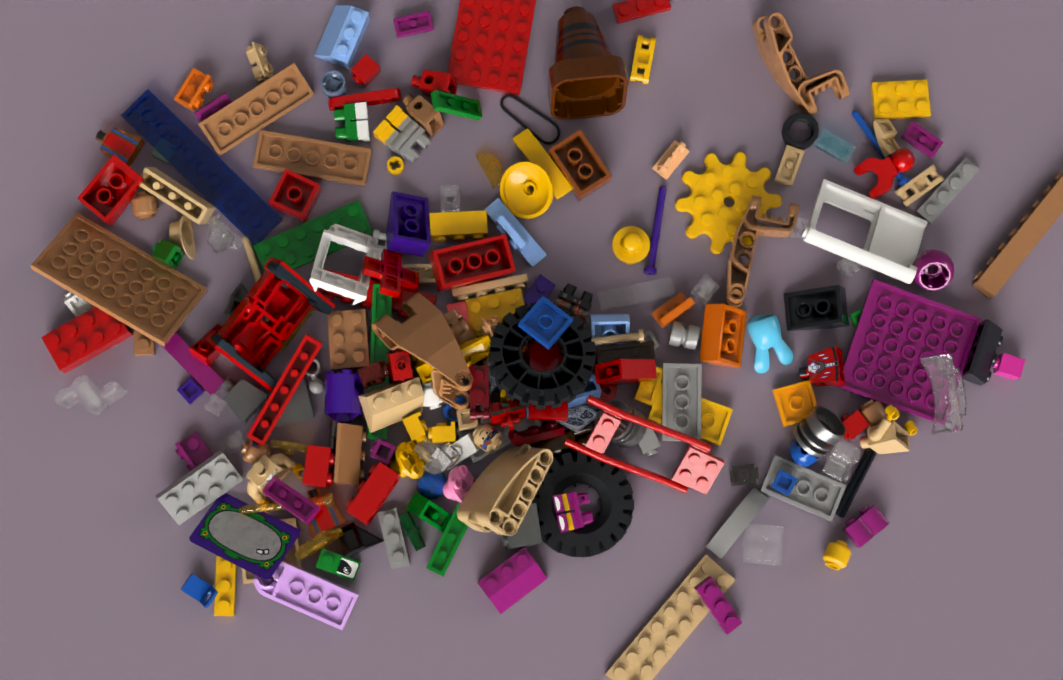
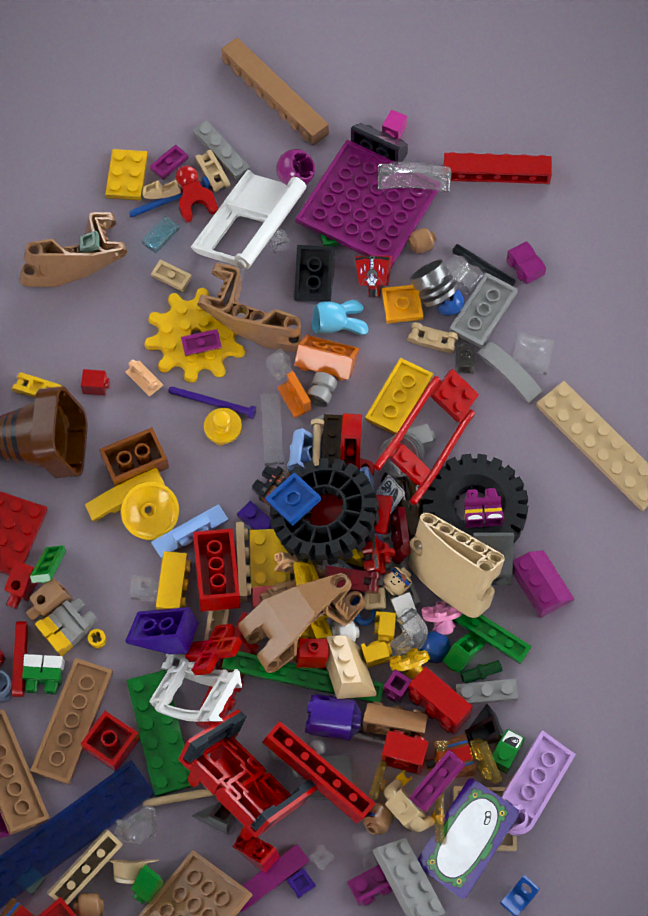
camera: 70 degrees left, 15 degrees down
(226, 586) = (513, 870): yellow plate -> none
(243, 398) = (319, 824): dark grey torso -> none
(348, 340) = (273, 703): medium nougat brick -> none
(374, 373) = (316, 679): clear red brick -> none
(491, 167) = (118, 545): clear yellow plate -> none
(535, 111) = (75, 513): black piece -> none
(648, 389) = (371, 431): yellow plate -> none
(657, 112) = (94, 382): none -> red brick
(681, 399) = (384, 398): light grey plate -> none
(714, 207) = (201, 342): none -> magenta plate
(718, 605) = (587, 397): magenta plate -> none
(762, 439) = (432, 338): none -> tan plate
(784, 482) = (477, 321): blue plate -> none
(803, 75) = (89, 242): none -> sand green tile
(808, 119) = (134, 249): black tyre -> none
(837, 555) = (550, 290): yellow head -> none
(854, 424) = (428, 254): red brick -> none
(888, 435) = (446, 228): tan torso -> none
(976, 483) = (499, 168): none -> red brick

